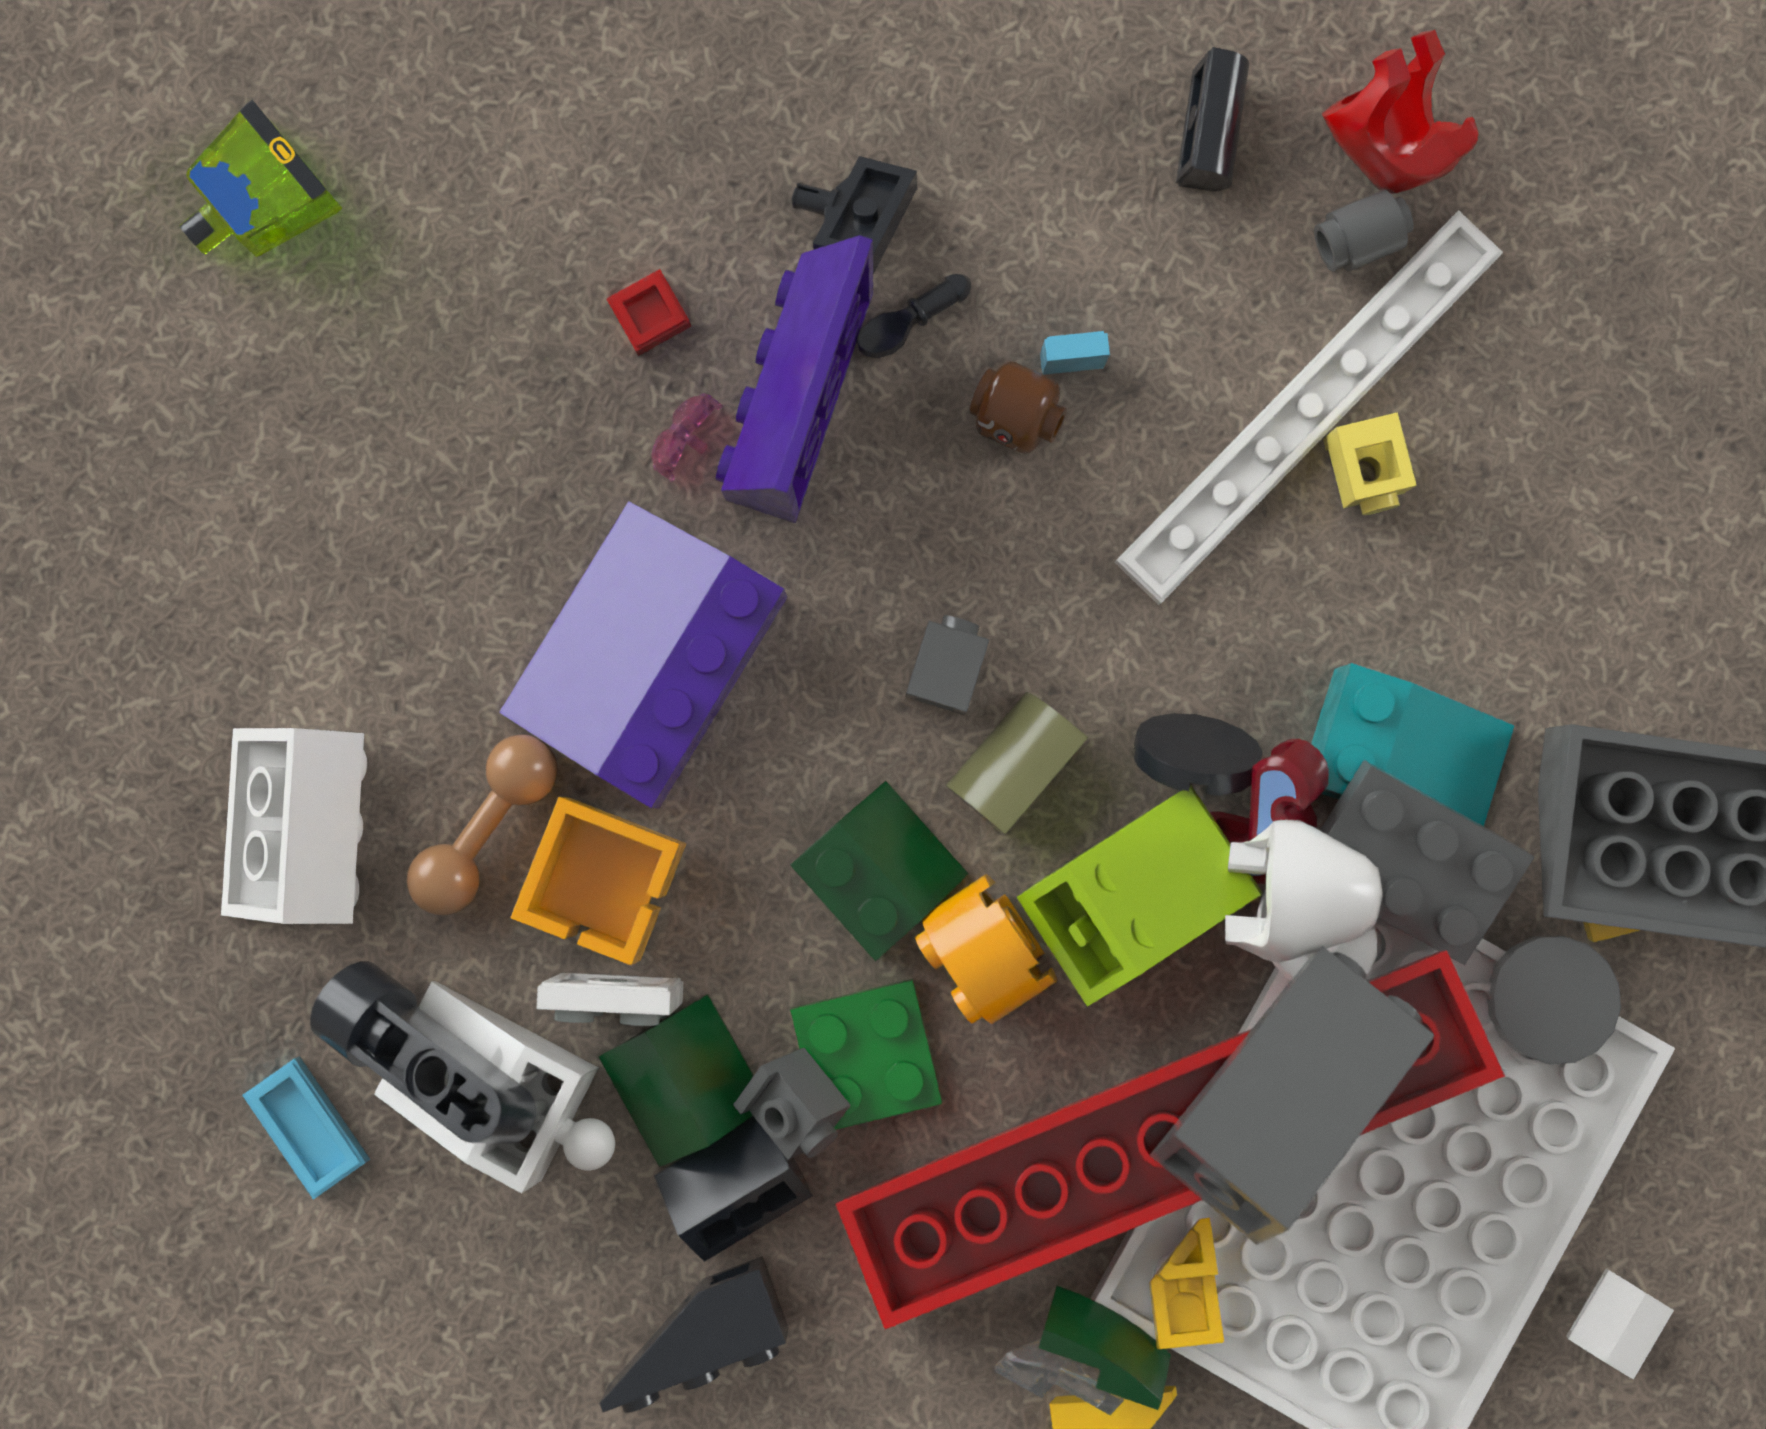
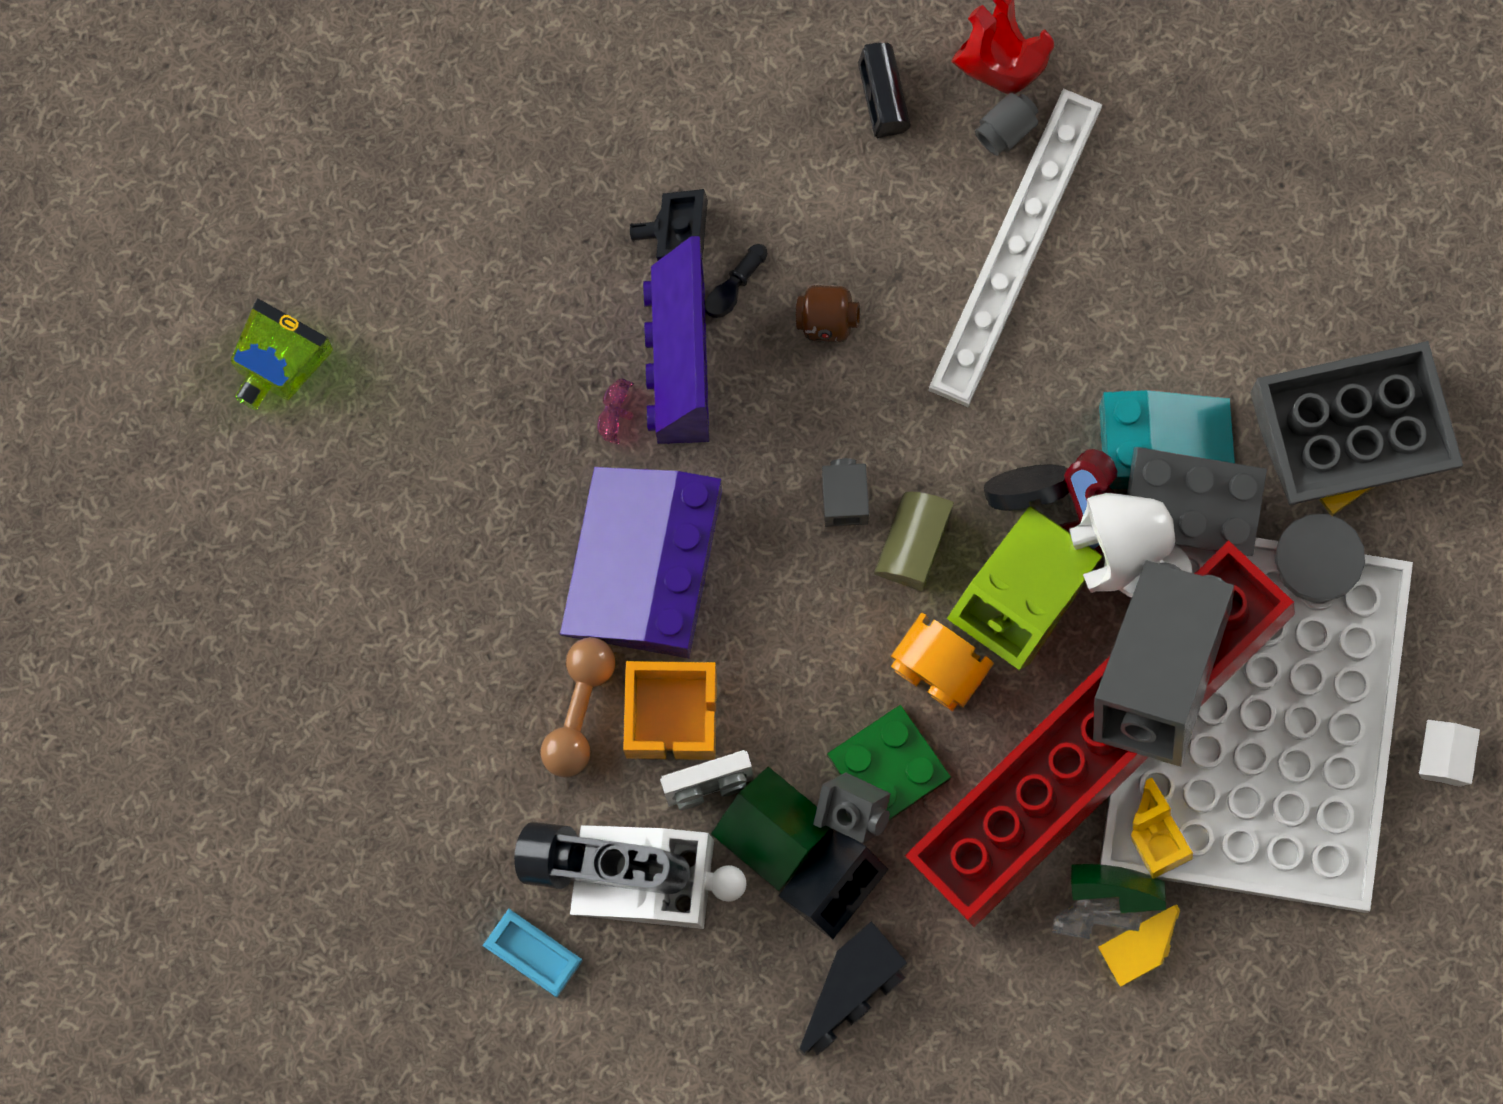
camera: 15 degrees left, 10 degrees down
(293, 825) = (450, 753): white slope -> none
(649, 312) = (562, 341): red tile -> none
(879, 870) = (849, 642): dark green slope -> none
(1074, 352) = (850, 266): medium azure tile -> none
(1382, 445) = (1064, 252): light yellow brick -> none

